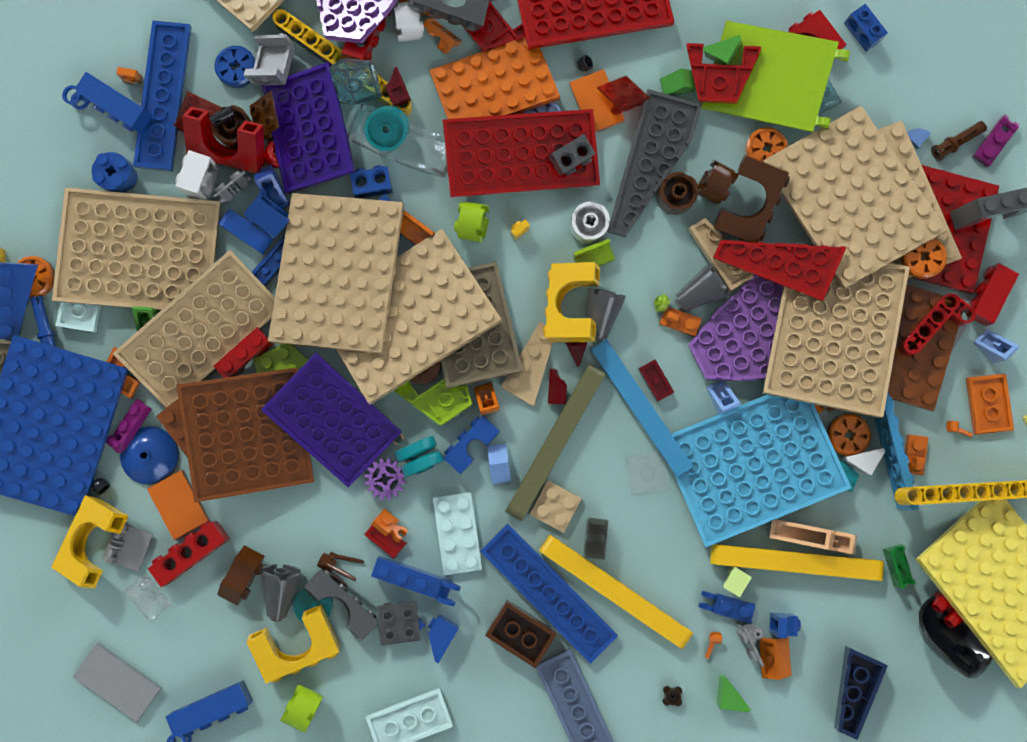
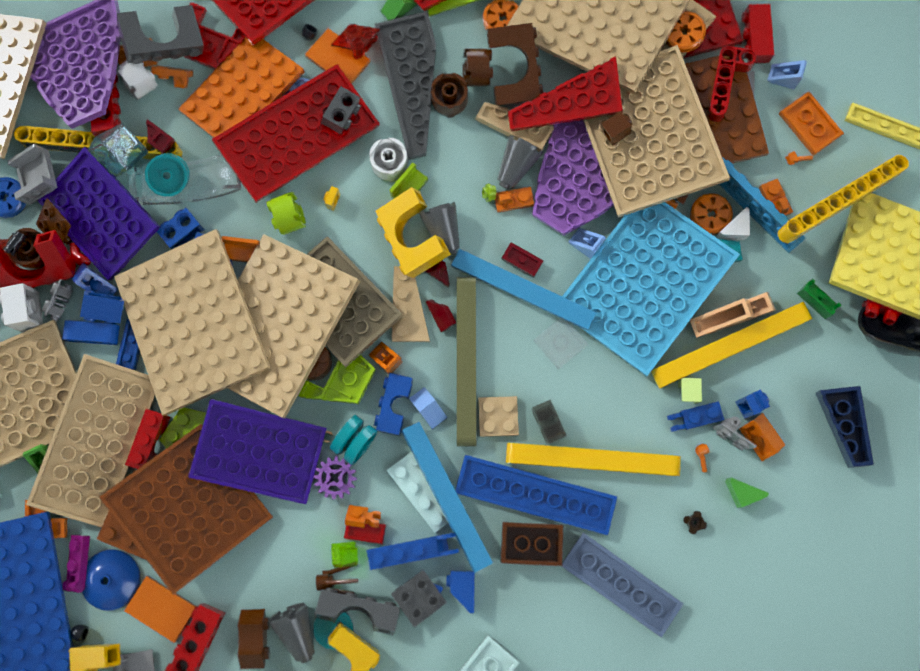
camera: 25 degrees left, 5 degrees down
(357, 549) = (344, 554): none -> clear neon green panel
(471, 551) = (447, 497): none -> dark azure tile
(809, 312) = (616, 128): none -> reddish brown brick

